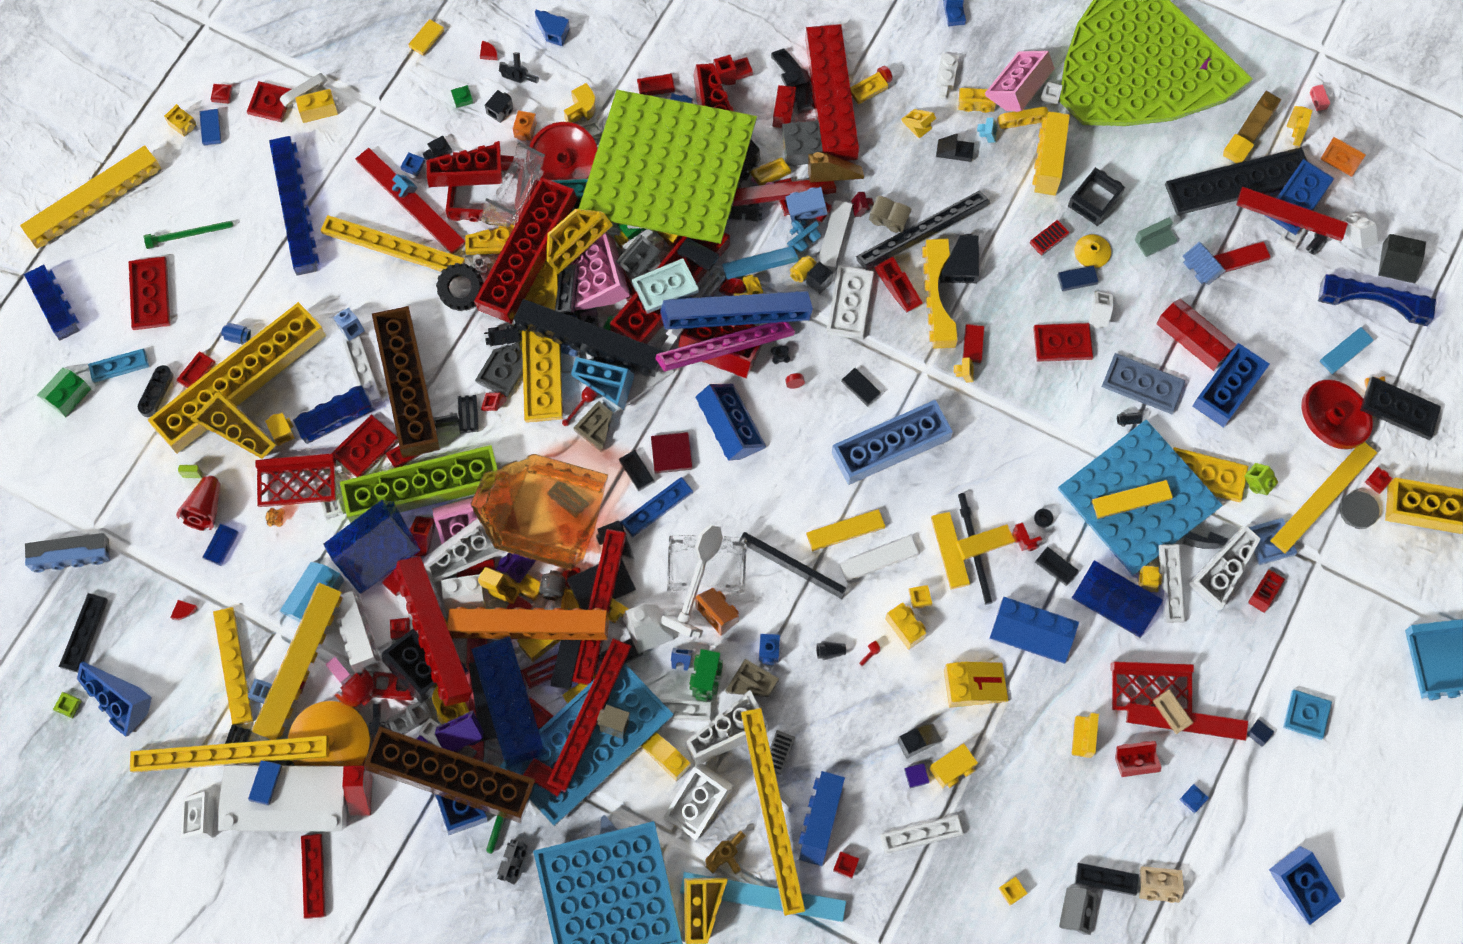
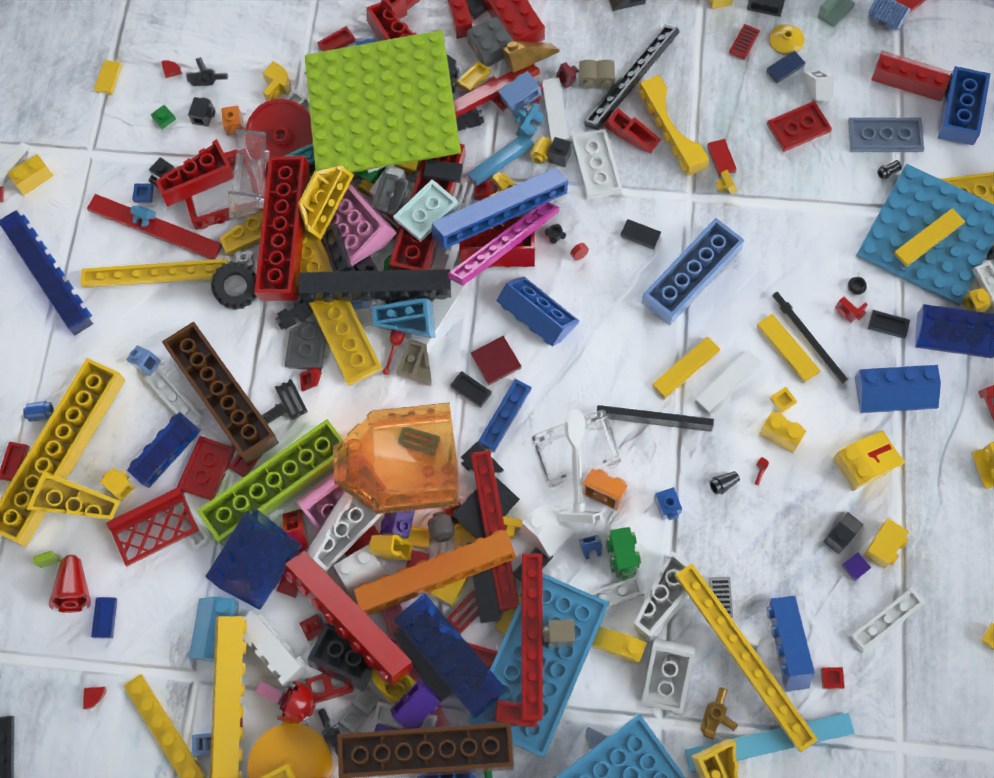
camera: 15 degrees left, 0 degrees up
(271, 515) = (147, 569): clear orange plate -> none
(552, 27) = (220, 25): blue slope -> none
(752, 678) = (665, 538): dark tan wing -> none
(963, 261) = (681, 89): black slope -> none
(985, 542) = (817, 327): yellow tile -> none

